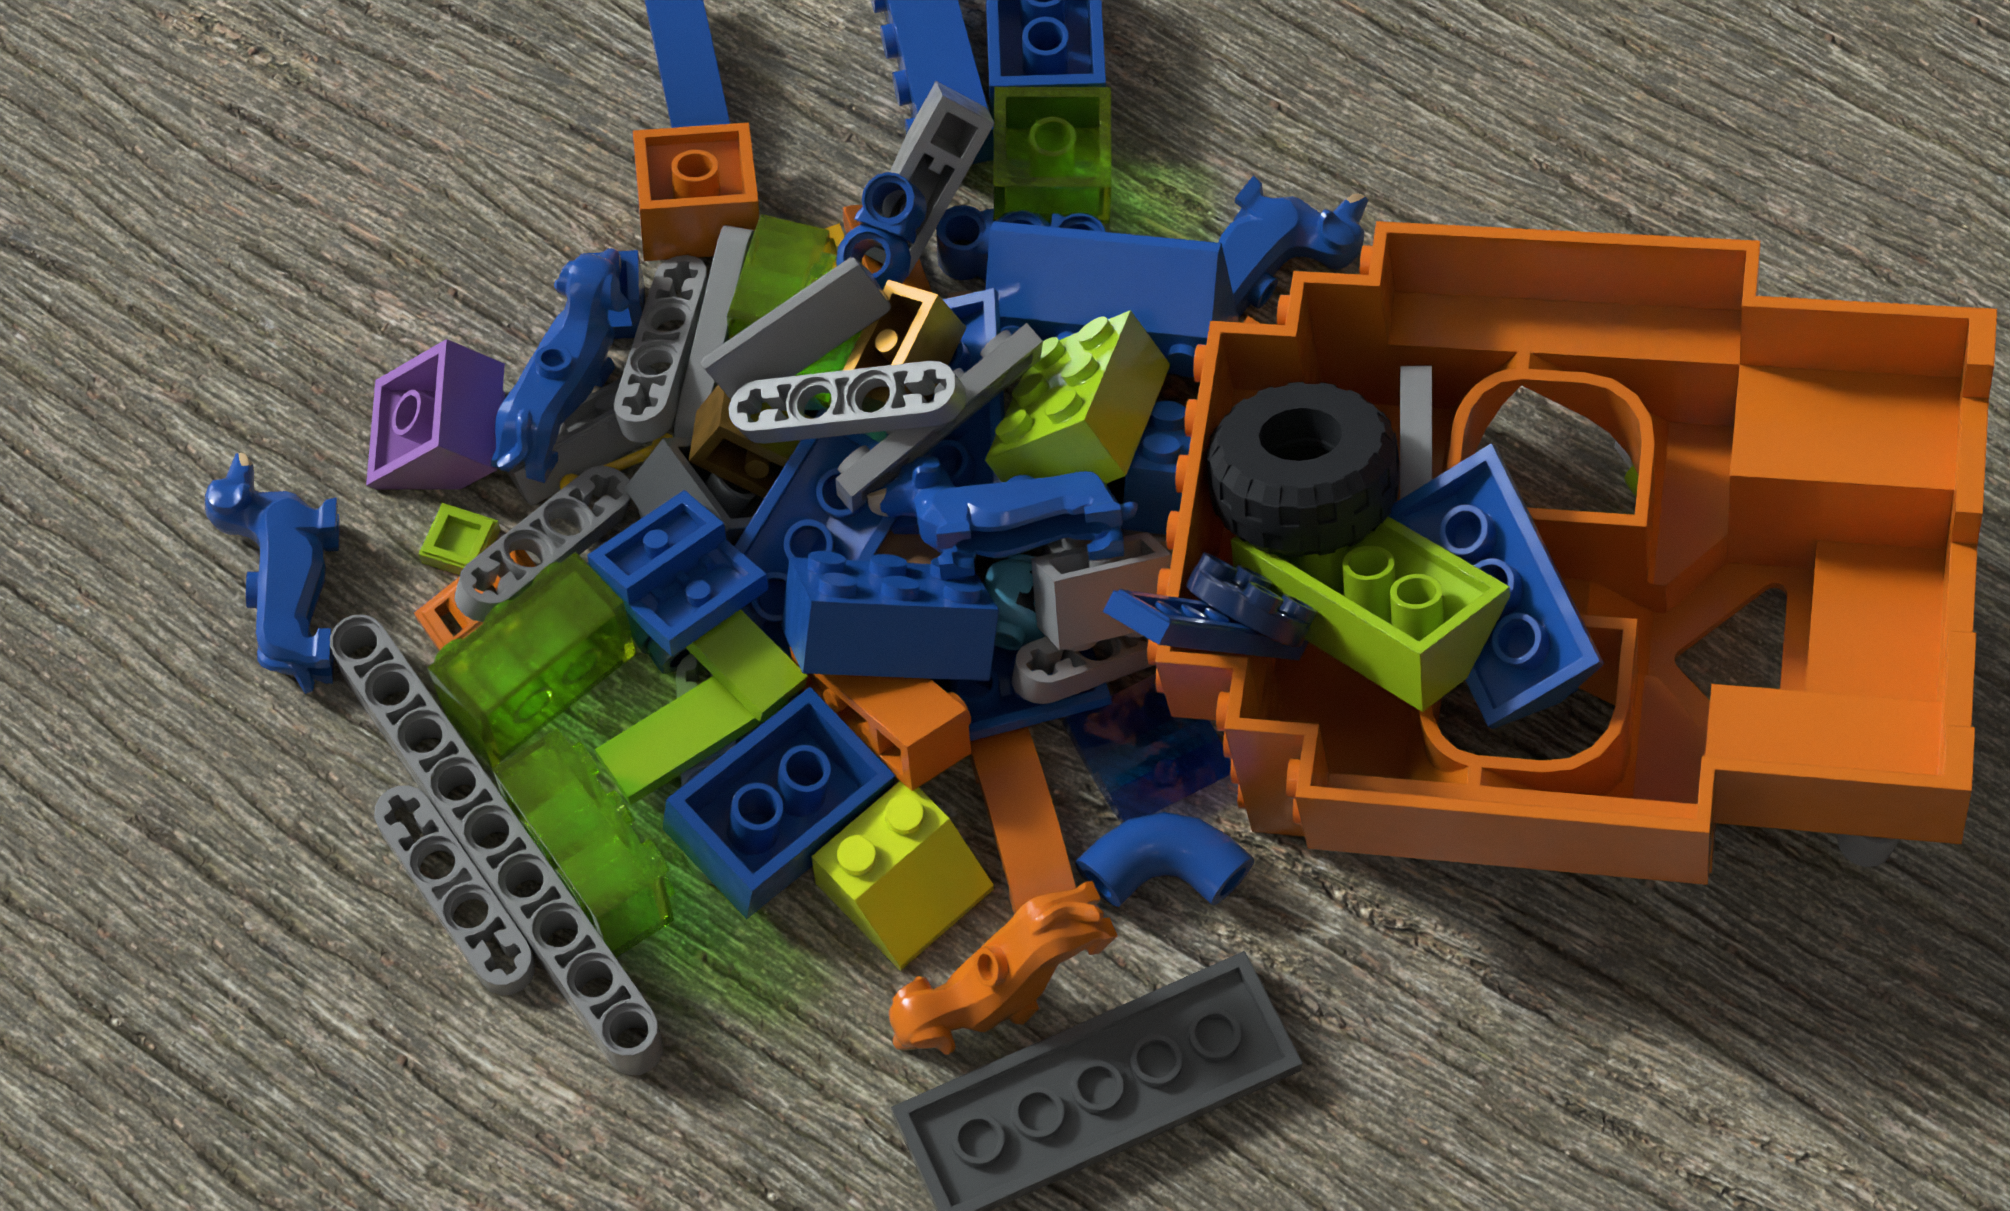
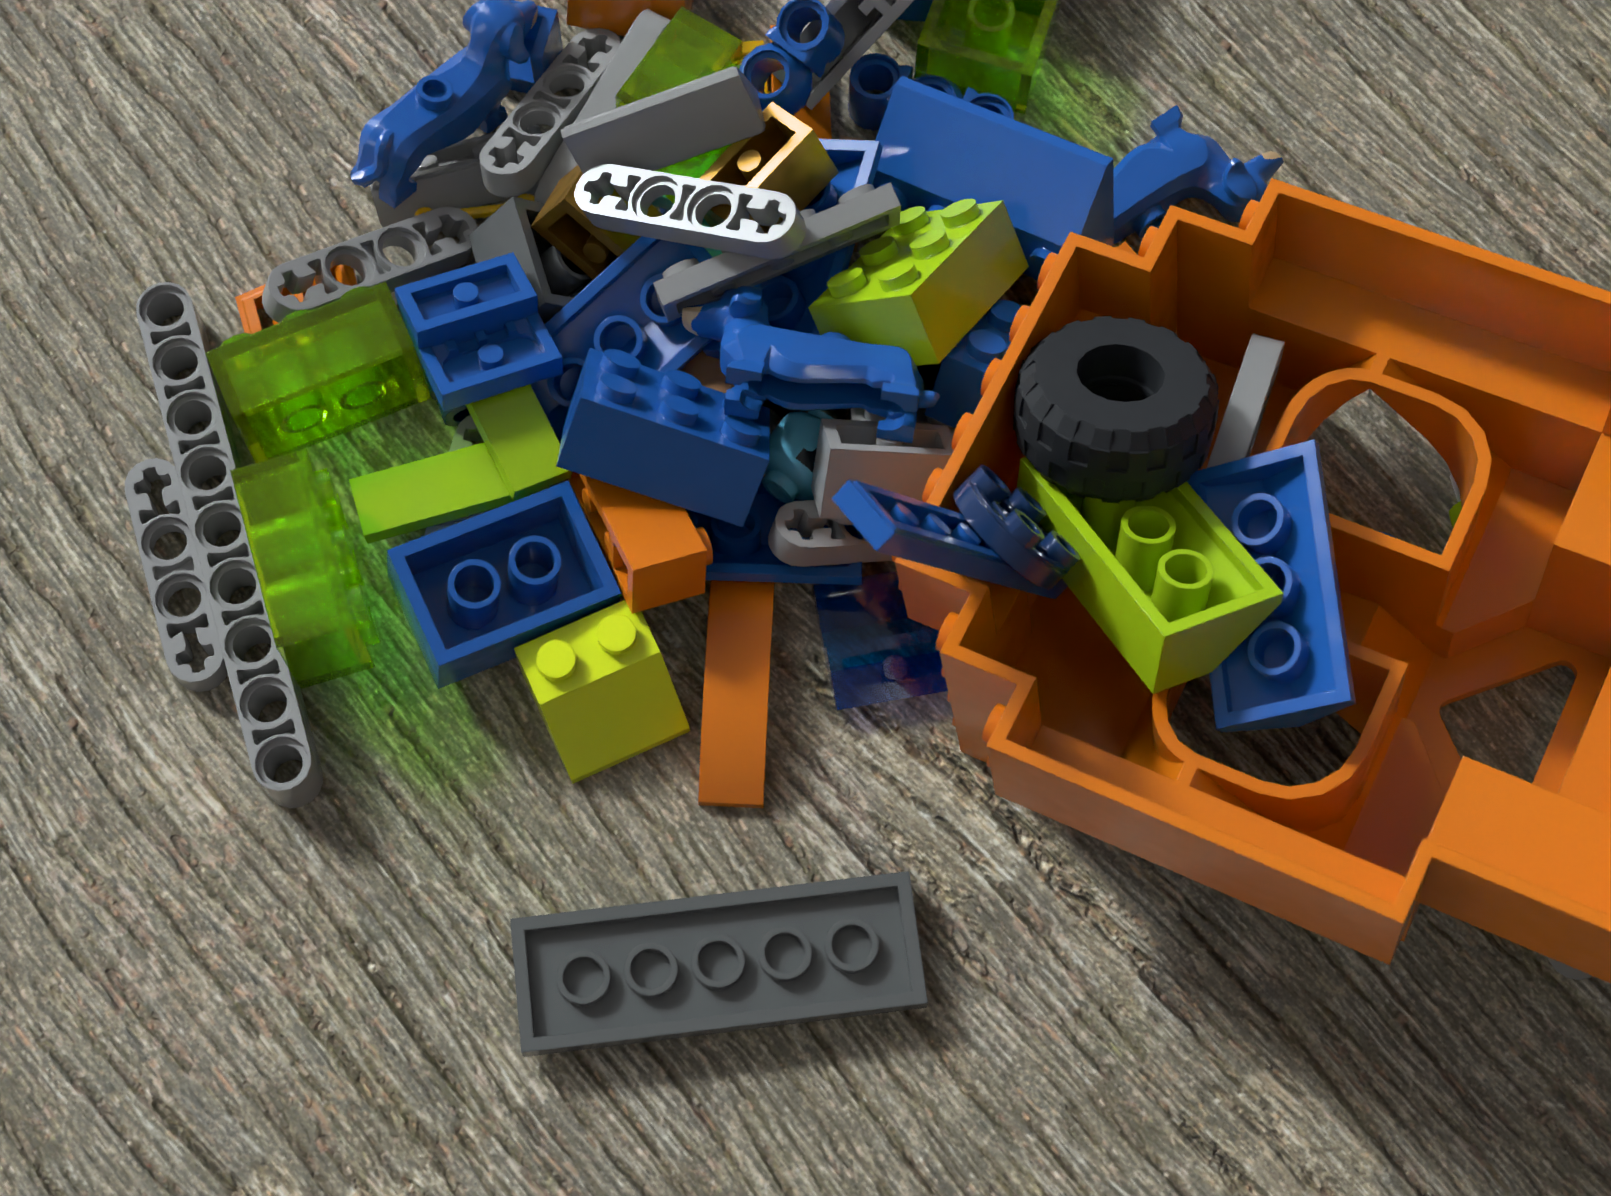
camera: 15 degrees right, 5 degrees up
(289, 568) = (130, 222): blue animal -> none
(435, 420) = (316, 119): medium lavender slope -> none
(457, 538) = (299, 234): lime tile -> none
(1003, 973) = (658, 823): orange animal -> none
(1164, 847) = (864, 742): blue cylinder -> none

